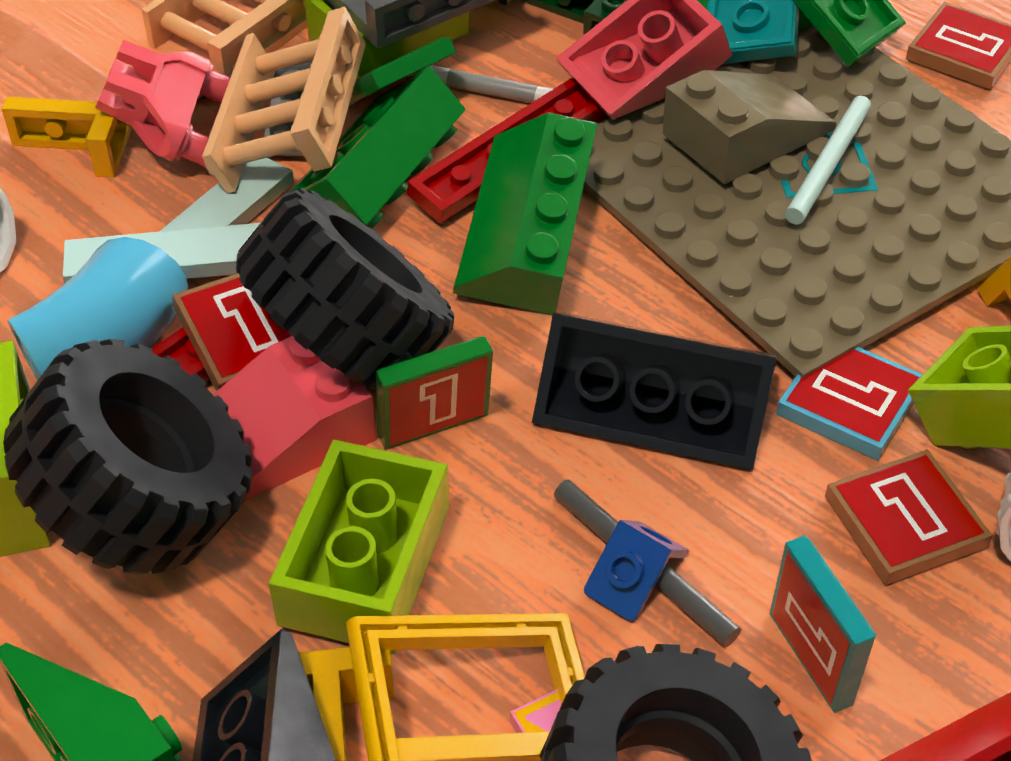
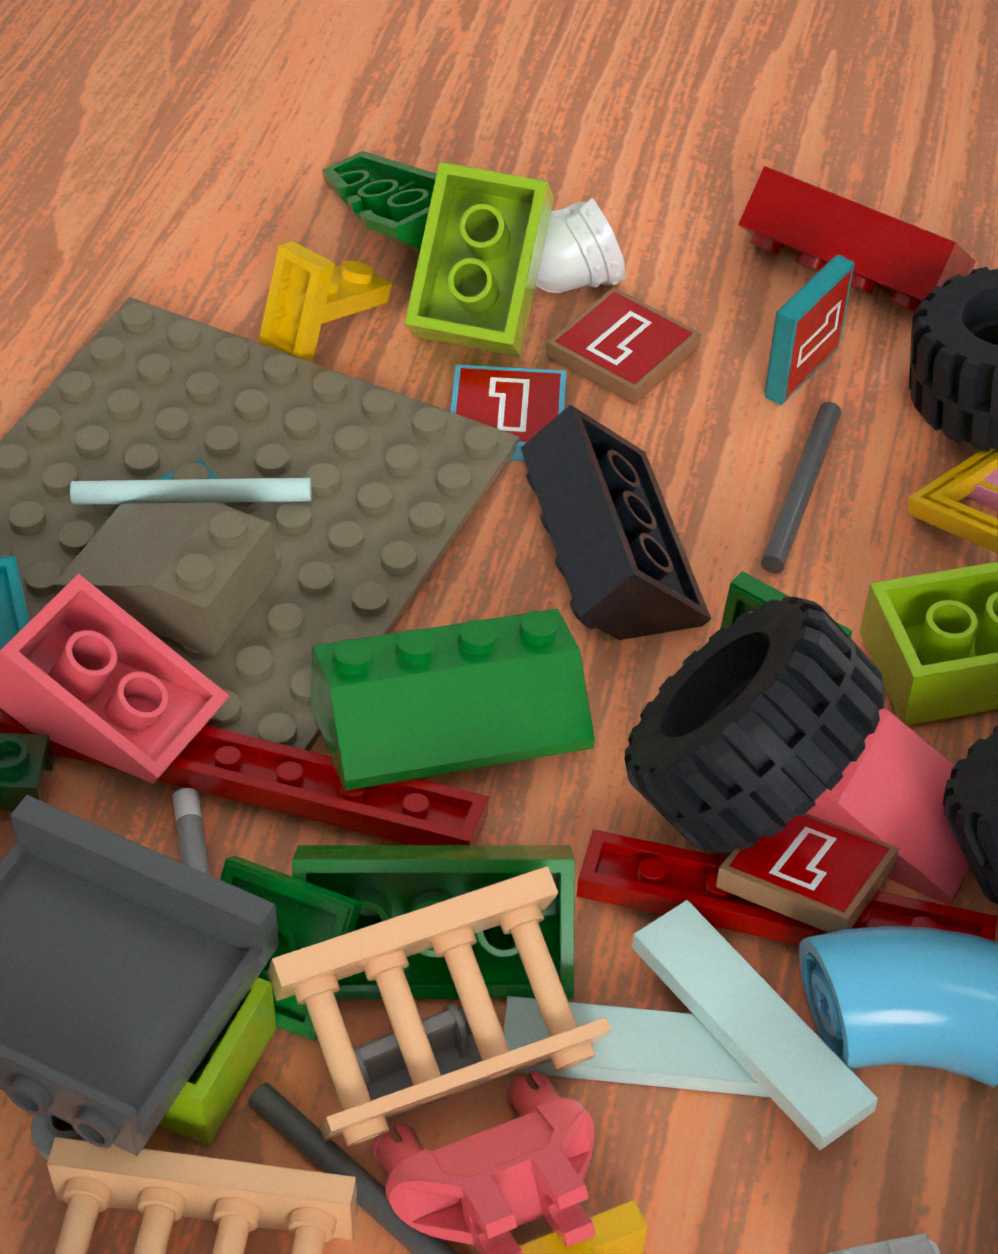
camera: 120 degrees left, 0 degrees up
(631, 567) = (820, 466): blue bracket -> none

